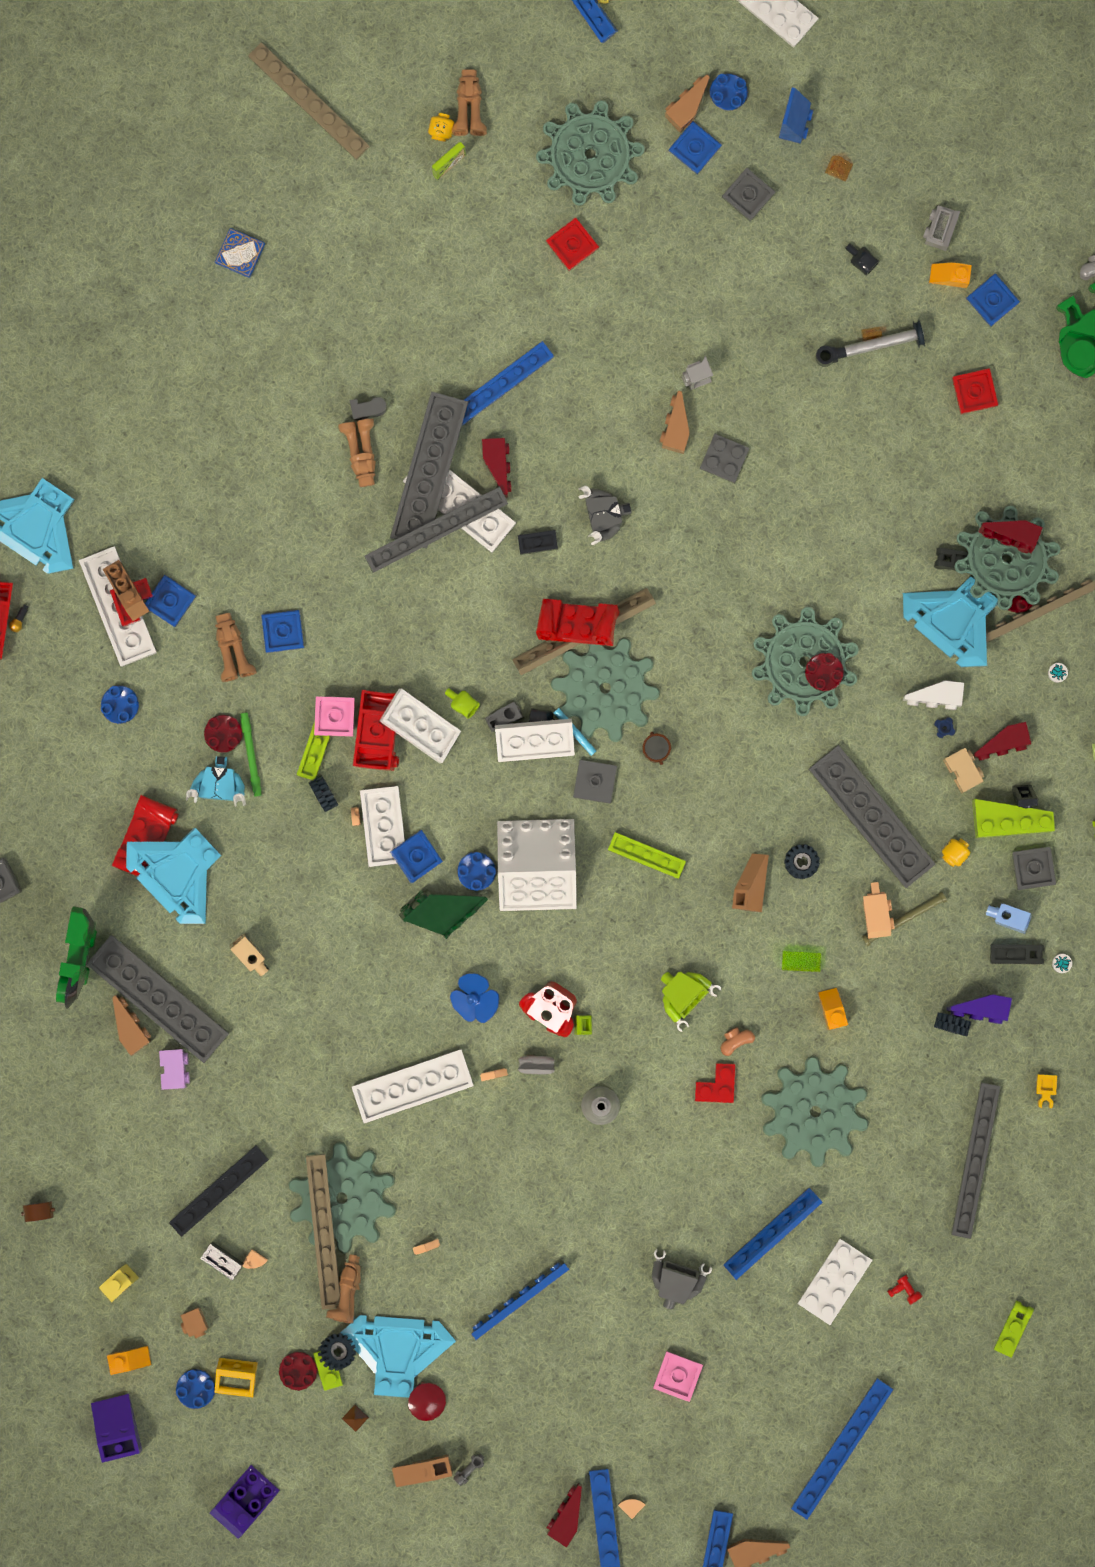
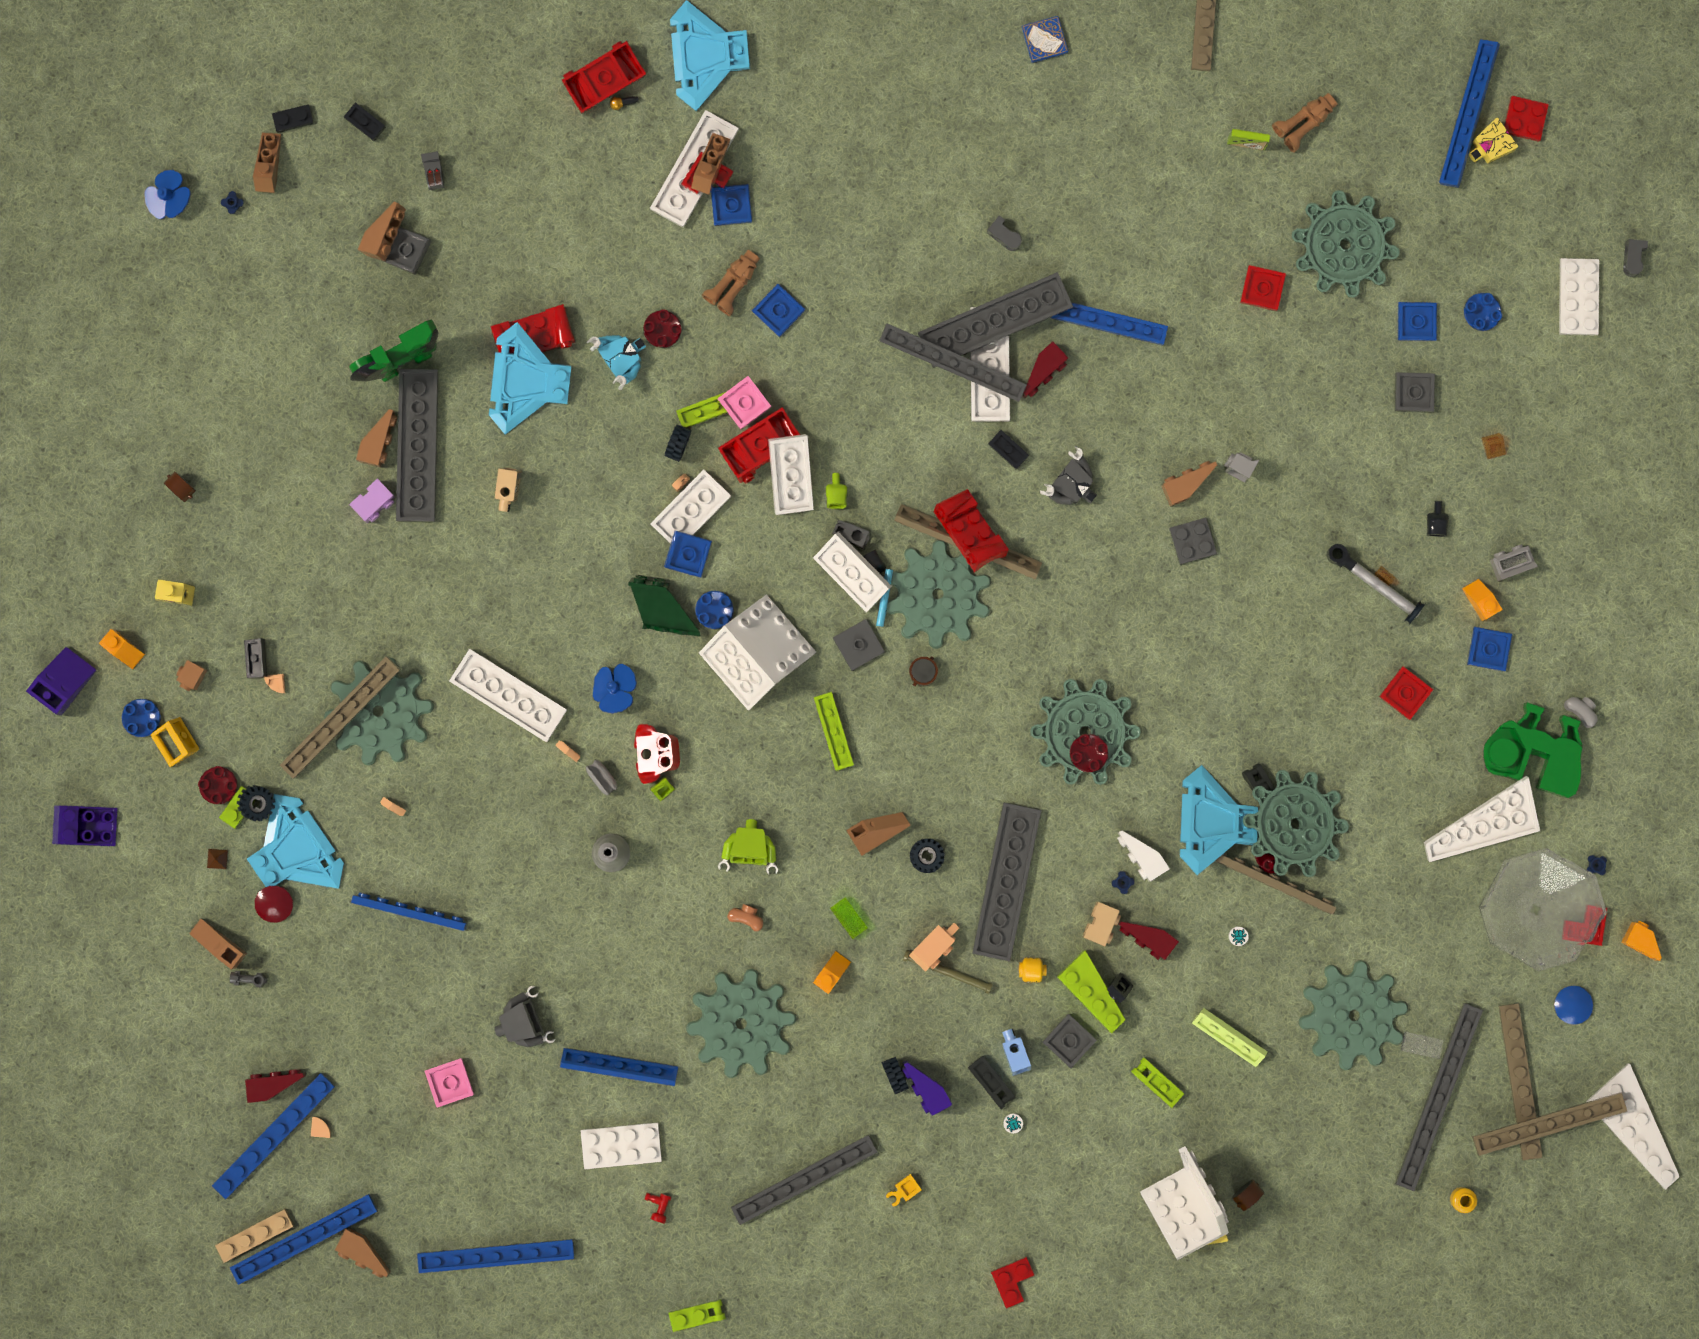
camera: 45 degrees right, 0 degrees up
(119, 704) = (620, 232): blue dish -> none
(218, 1191) = (307, 612): black plate -> none
(255, 779) = (646, 382): bright green piece -> none
(348, 1285) = (313, 771): medium nougat piece -> none
(362, 463) = (959, 265): medium nougat piece -> none
(441, 127) = (1270, 113): yellow head -> none
(685, 109) = (1438, 289): medium nougat slope -> none
(721, 1090) = (698, 936): red plate -> none
(795, 117) = (1505, 379): blue slope -> none
(1019, 534) = (1320, 815): dark red slope -> none

